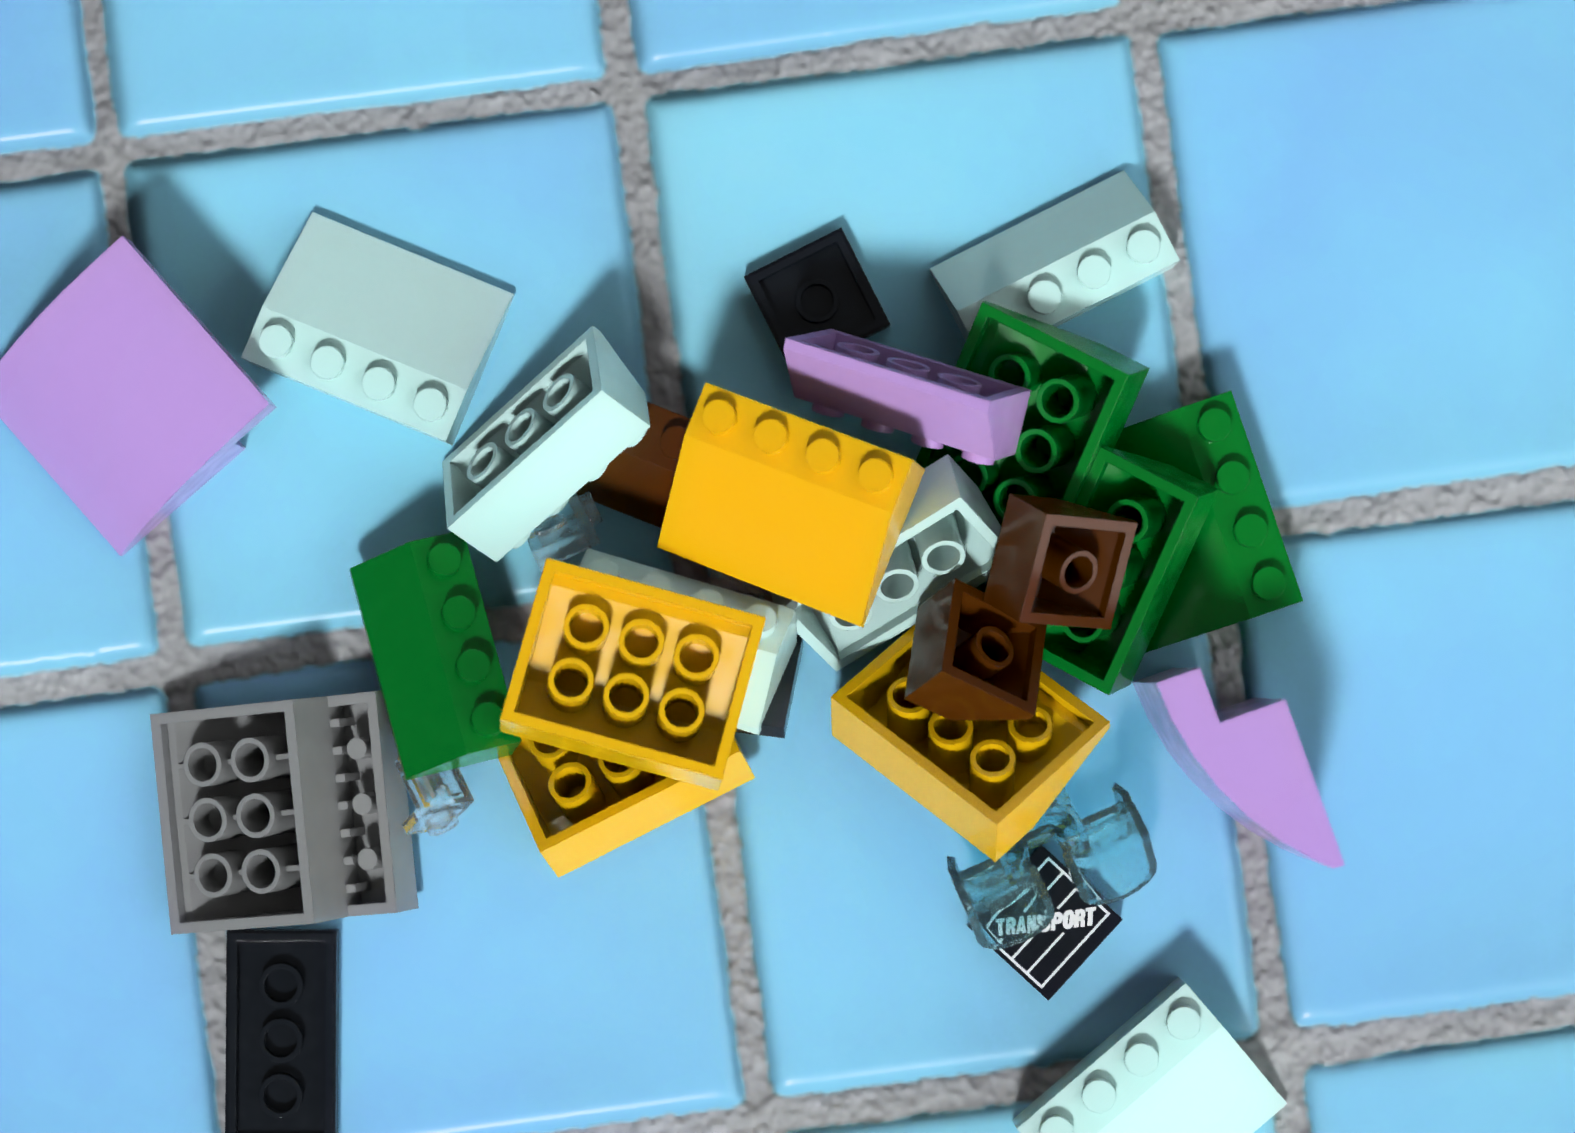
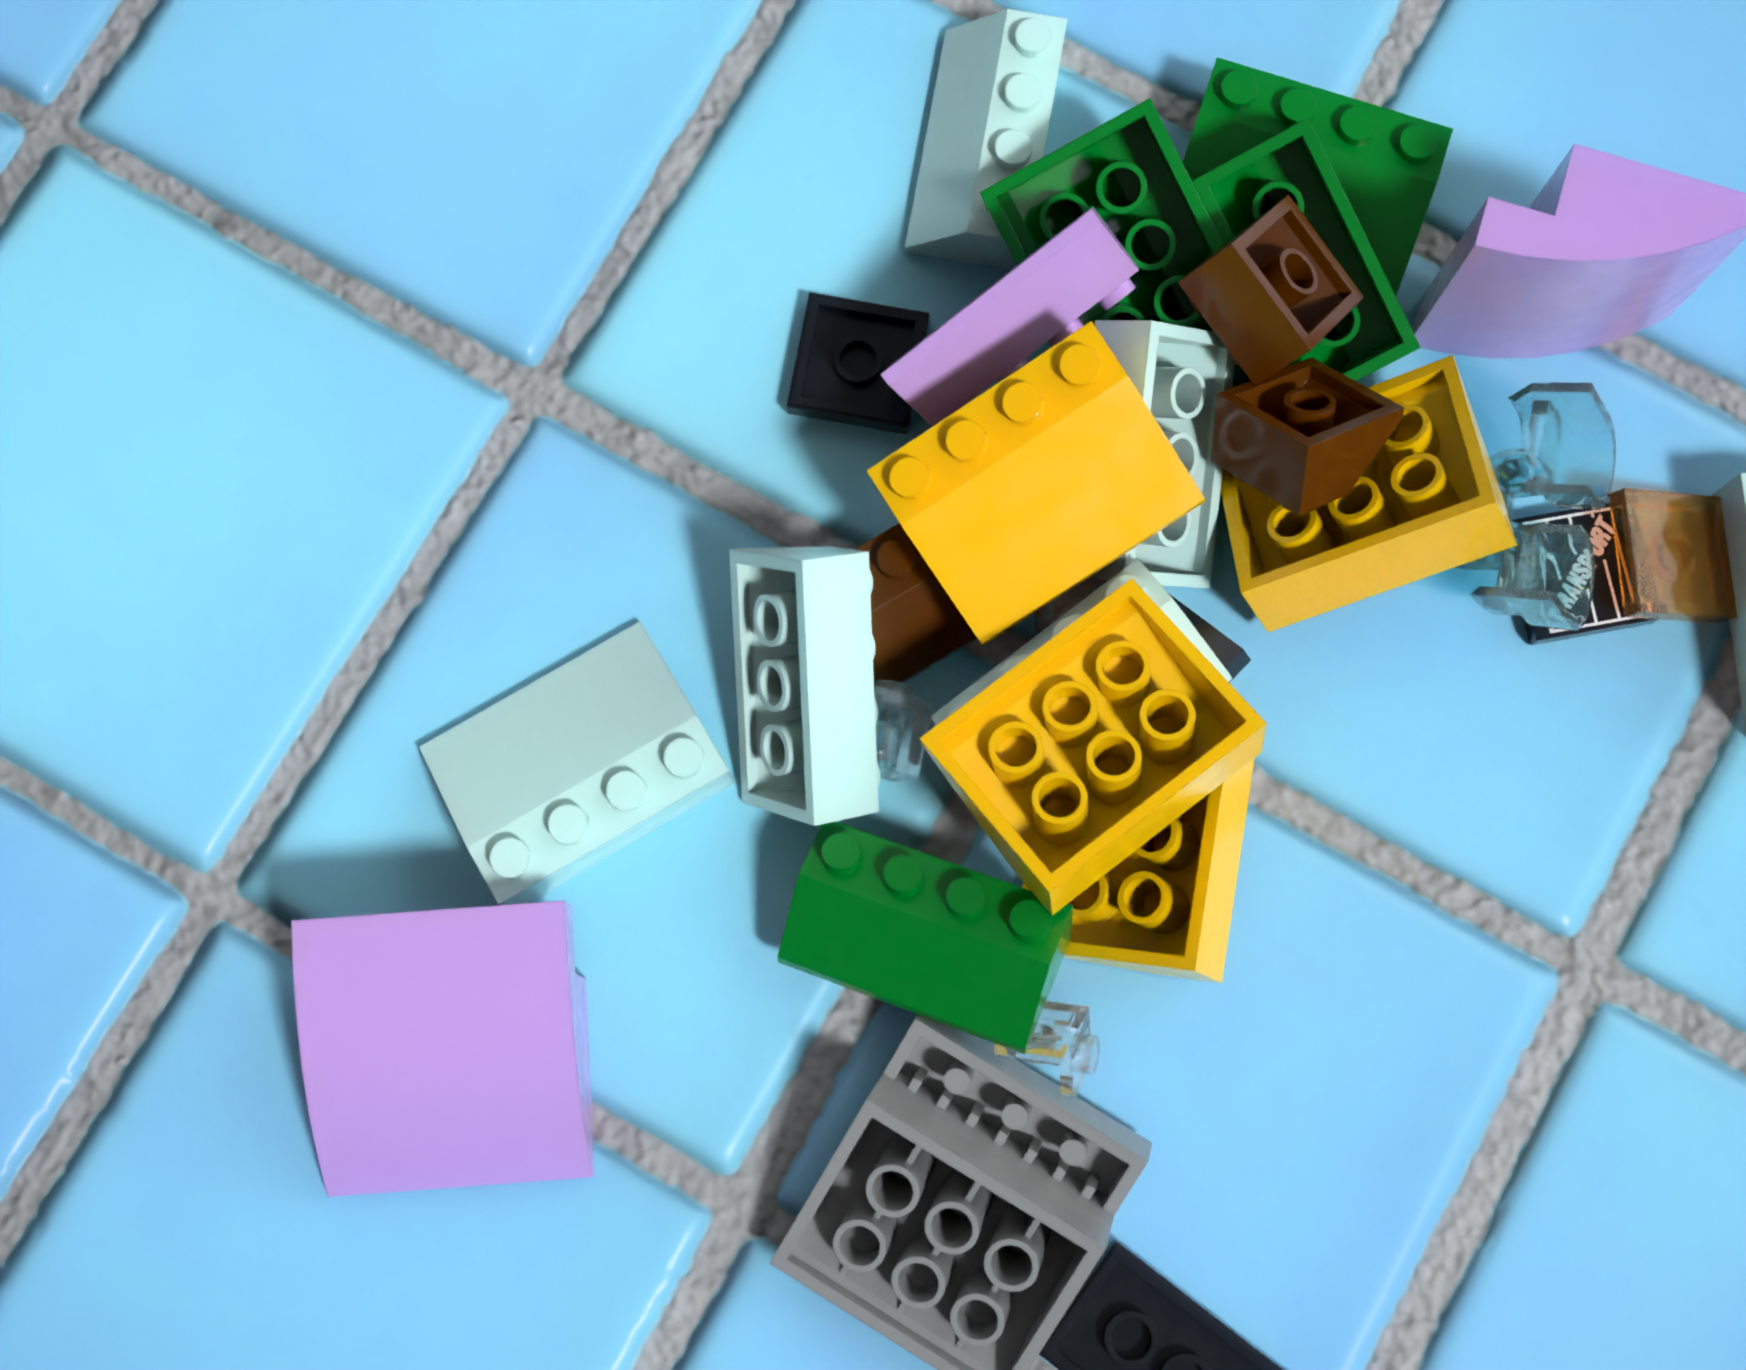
camera: 55 degrees left, 10 degrees down
(1099, 978) = (1672, 556): none -> clear orange tile

